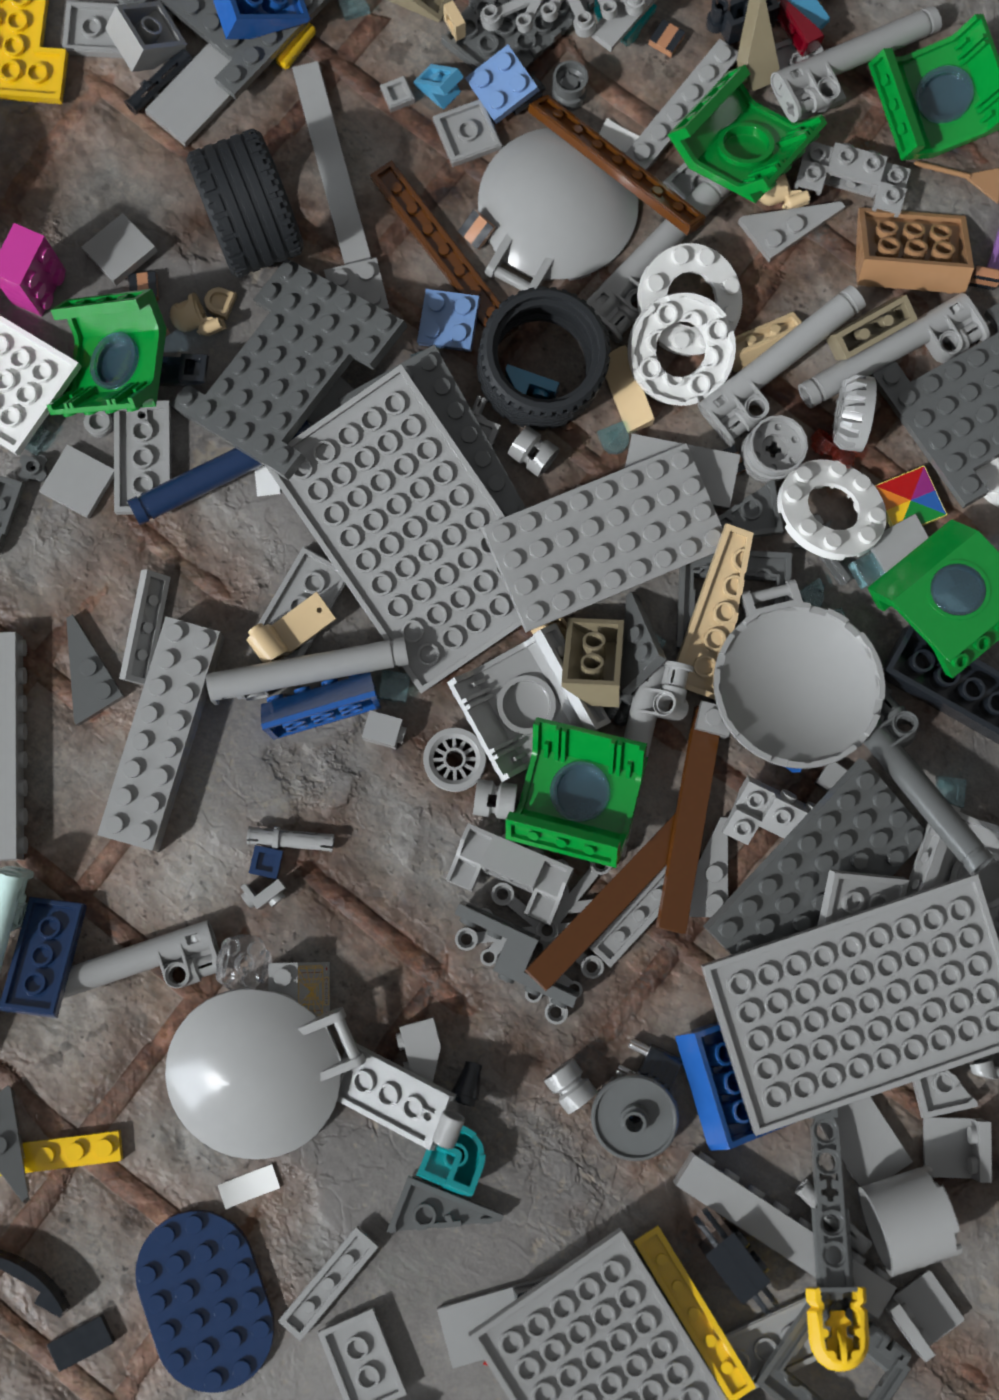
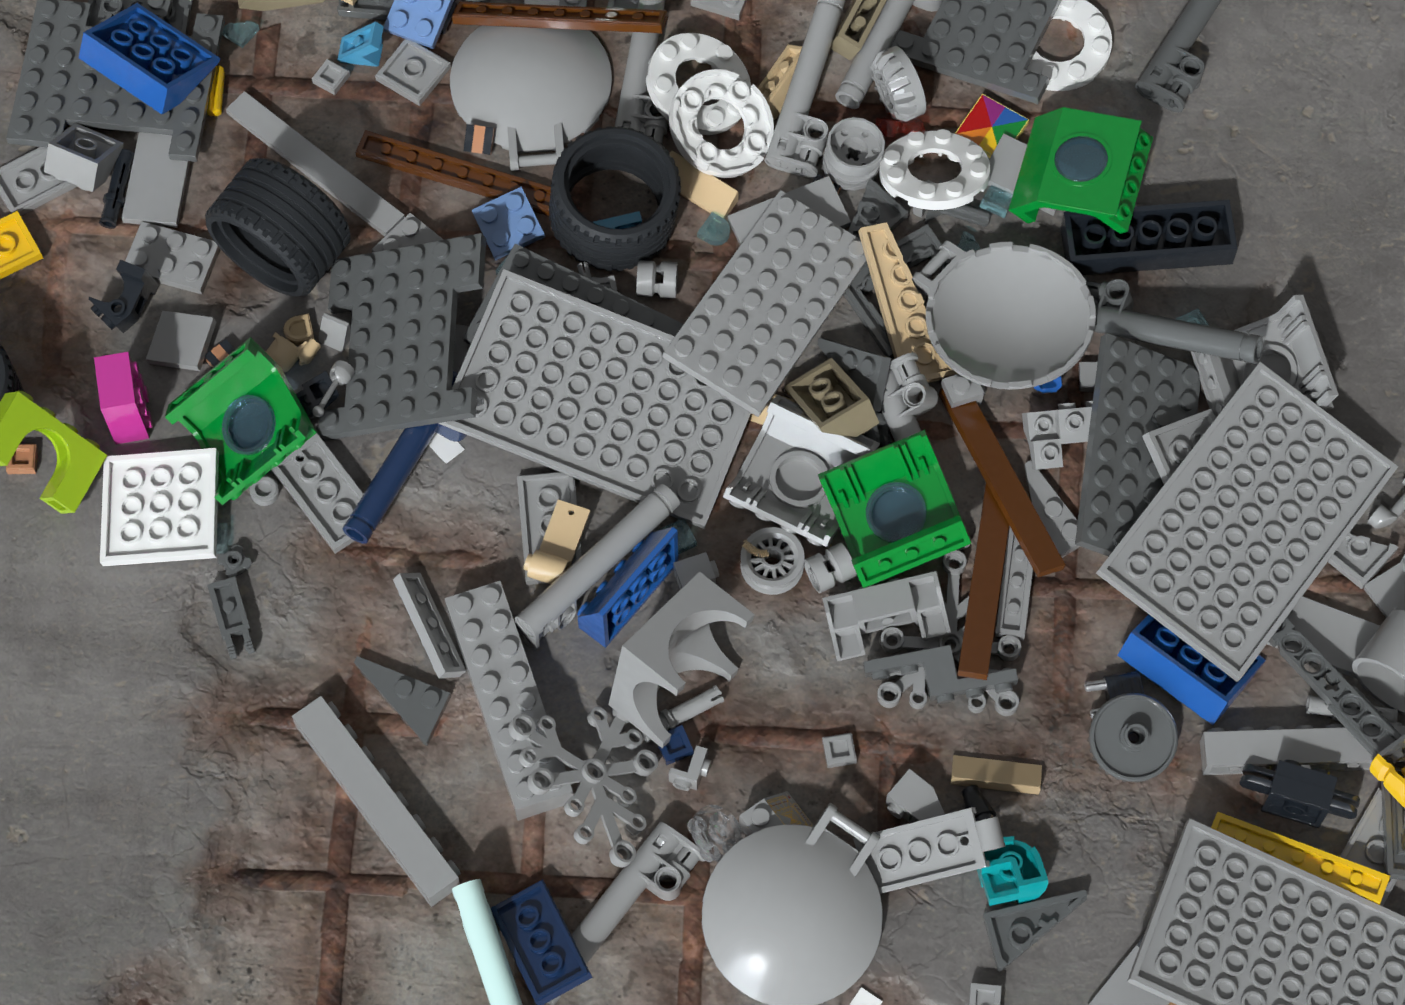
camera: 30 degrees left, 15 degrees down
(77, 481) = (281, 548): light grey tile -> none
(101, 188) = (136, 291): none -> black tile
(160, 170) = (173, 256): none -> light grey plate
(167, 879) = (603, 807): none -> light grey plant
(216, 365) = (340, 374): none -> light grey hinge
(243, 323) = (334, 332): none -> light grey slope
(331, 782) = (672, 643): none -> light grey piece
(394, 956) = (839, 750): none -> light grey tile
(447, 749) = (761, 552): none -> tan leg
(505, 1065) = (996, 774): none -> tan slope
(572, 1088) = (1062, 750): light grey wheel -> none

